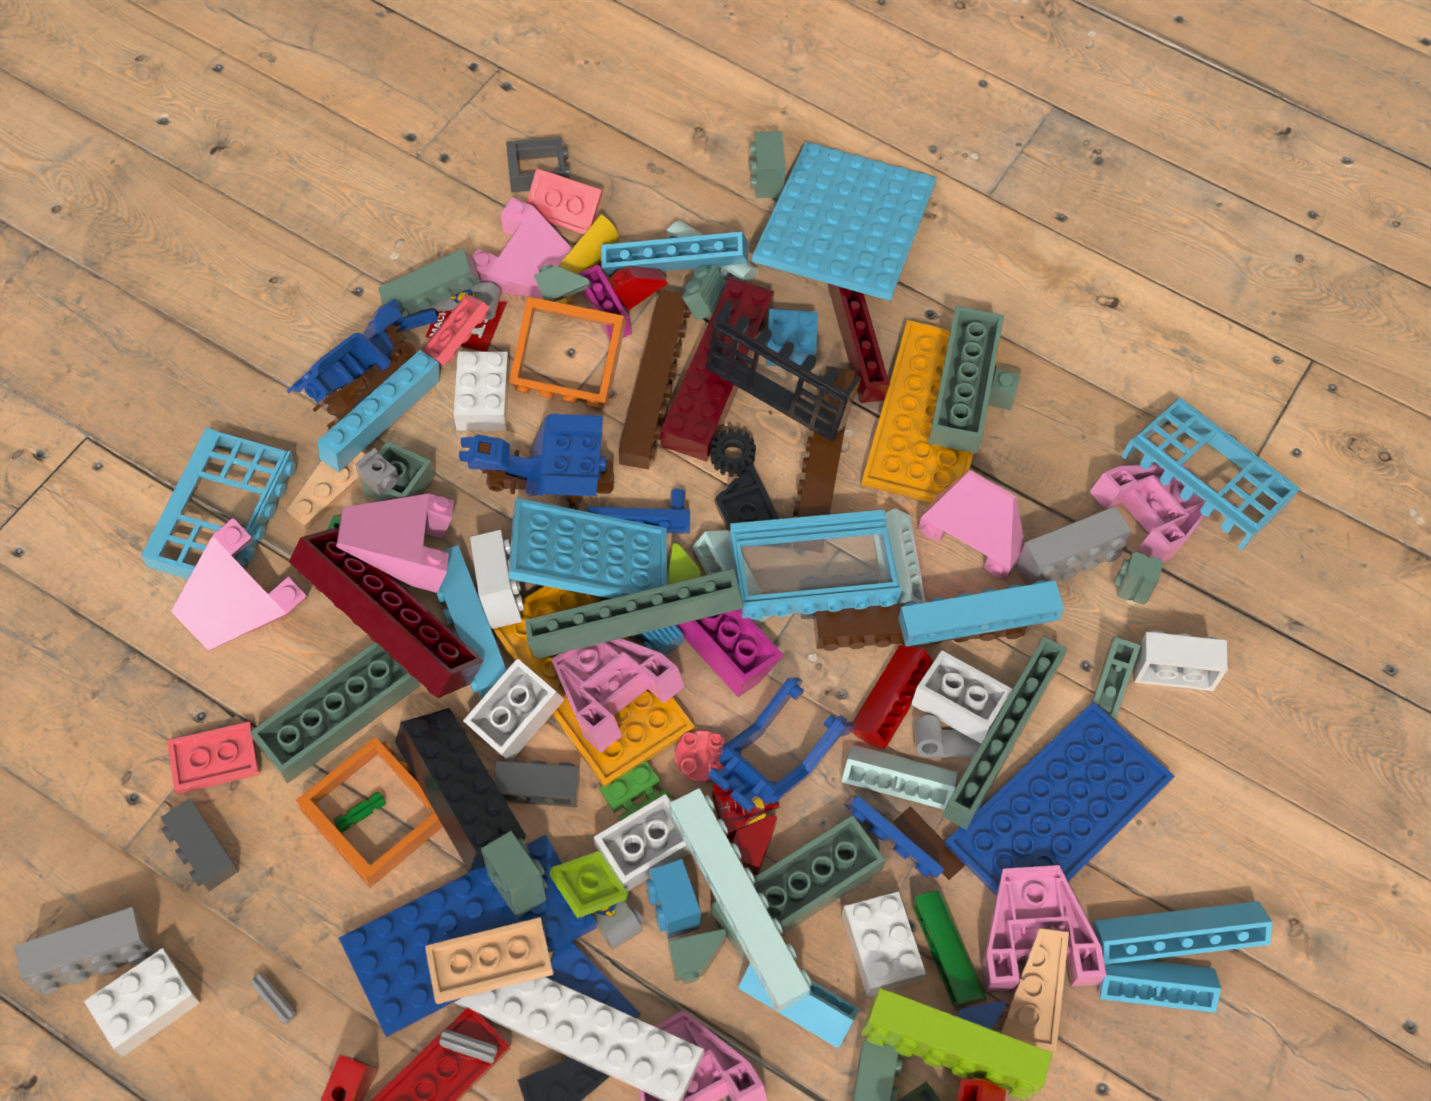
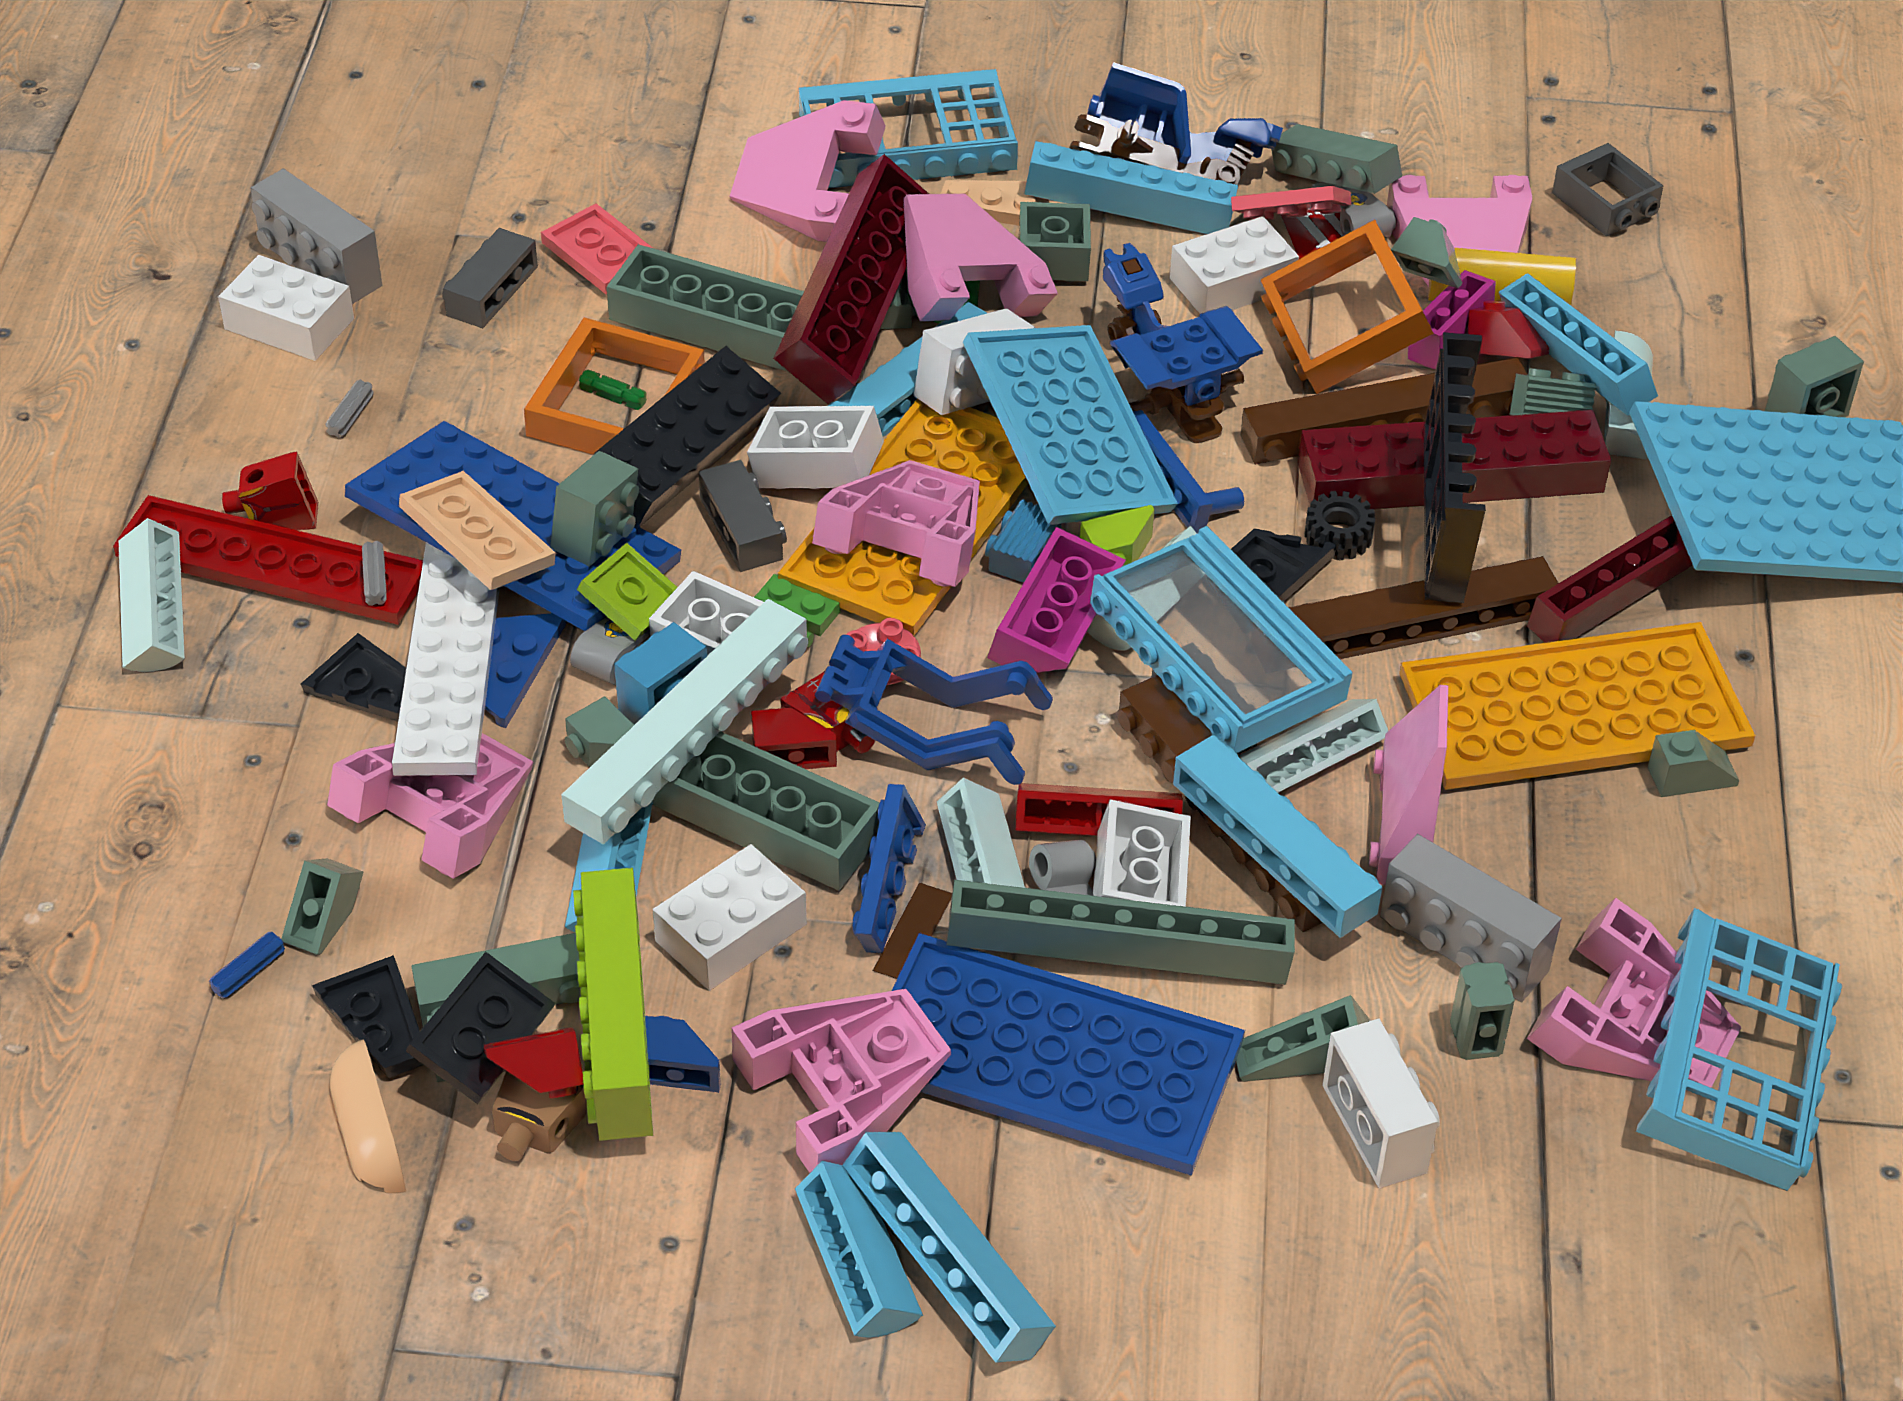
camera: 65 degrees right, 15 degrees down
(377, 472) = (1033, 202): light grey brick -> none
(416, 320) = (1280, 176): blue axle -> none
(564, 201) = (1572, 223): coral plate -> none
(634, 614) = (1011, 485): sand green brick -> none
(793, 327) = (1562, 515): dark azure brick -> none
(948, 950) = (782, 978): green brick -> none
(966, 379) = (1644, 694): sand green brick -> none
(1038, 996) = (743, 1107): light nougat wing -> none

